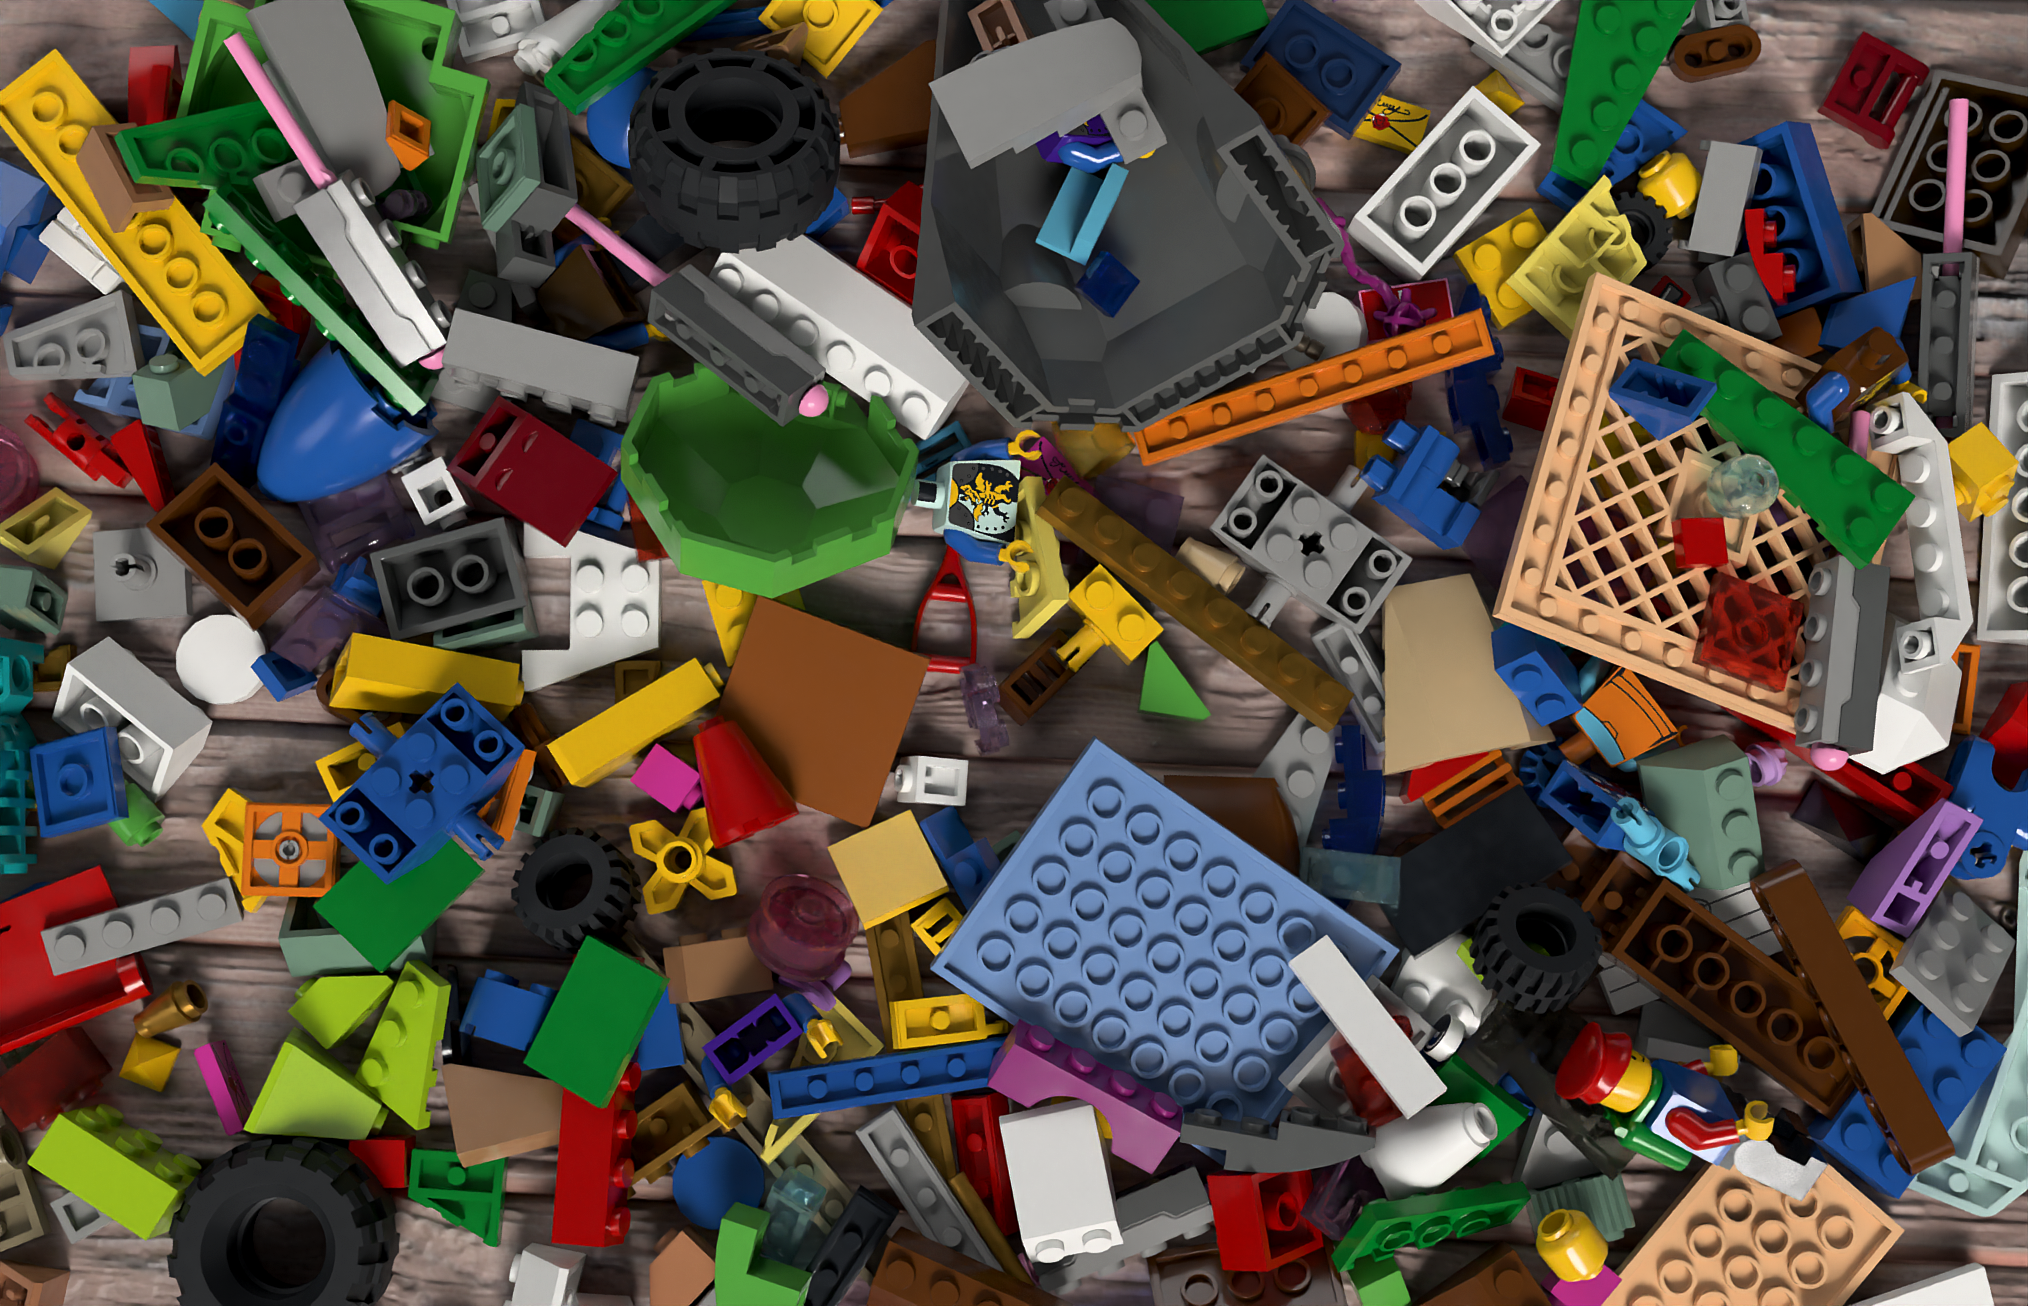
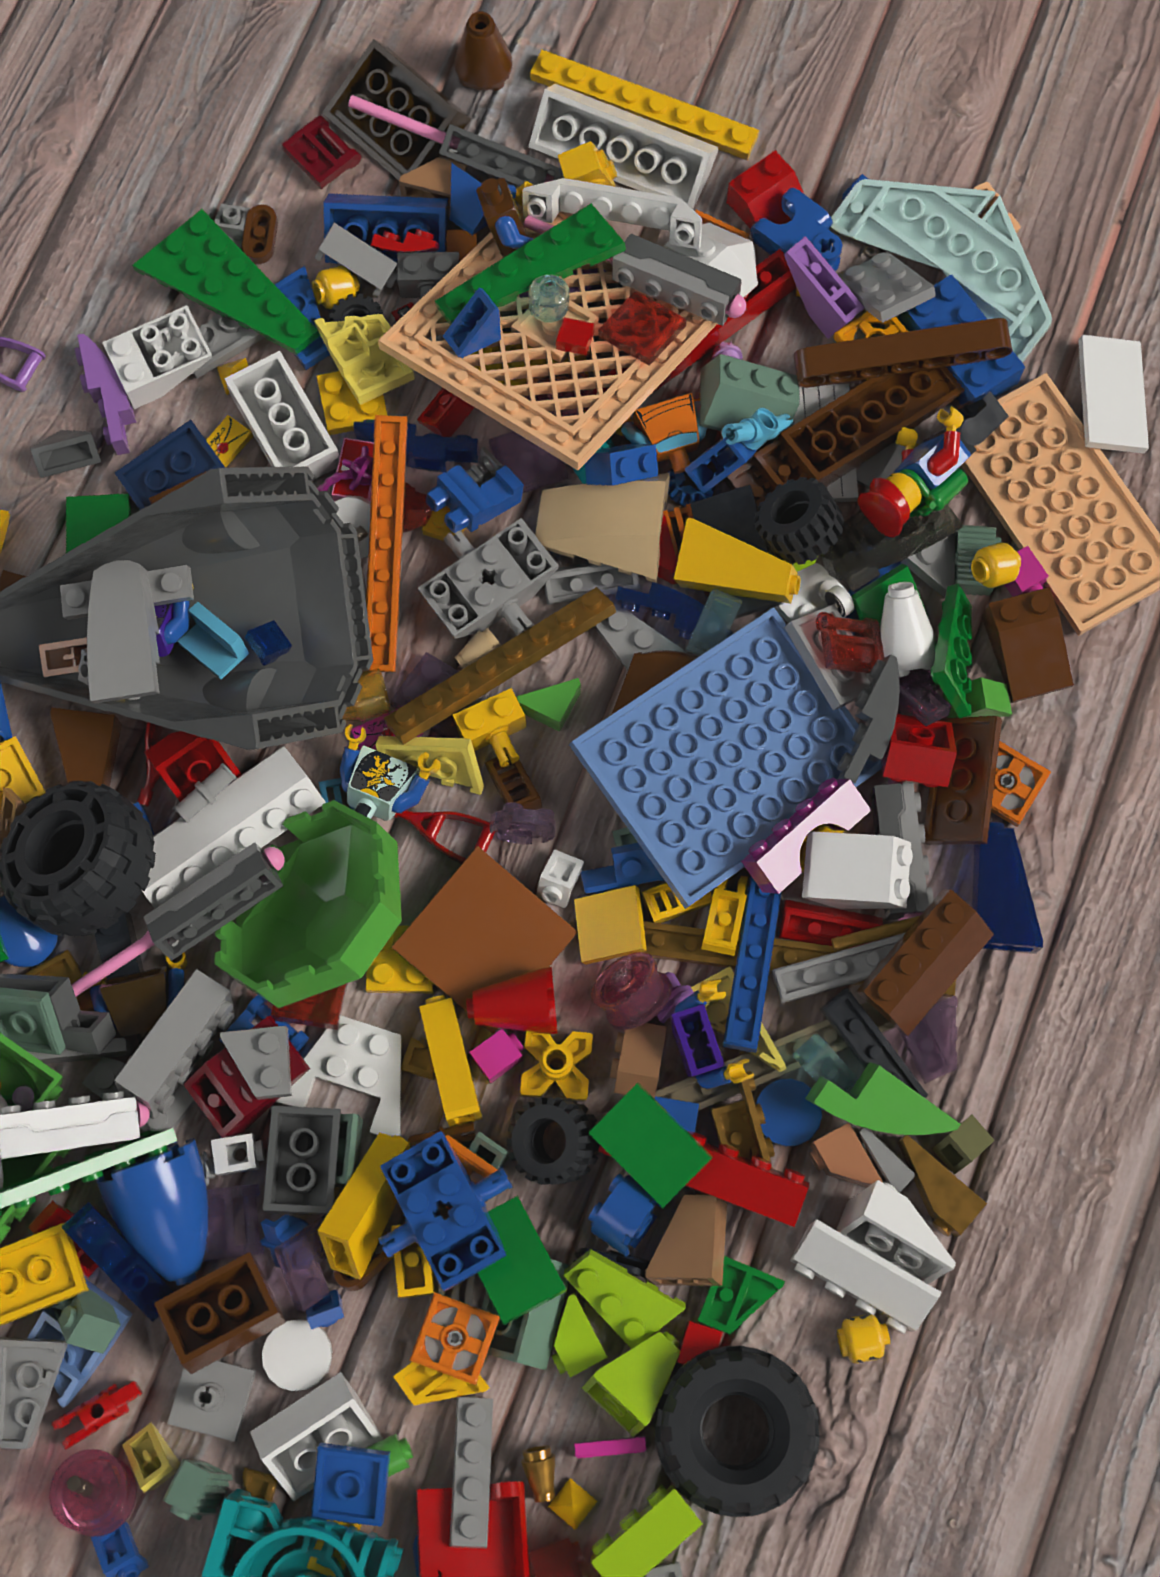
camera: 70 degrees left, 10 degrees down
(143, 455) = (127, 1366): red slope -> none
(551, 483) = (262, 1059): none -> light grey wing
(877, 277) = (205, 792): none -> light grey pin
(1367, 1027) = (816, 636): white tile -> none
(1440, 865) = (722, 562): none -> yellow slope
(1841, 822) = (780, 326): black slope -> none

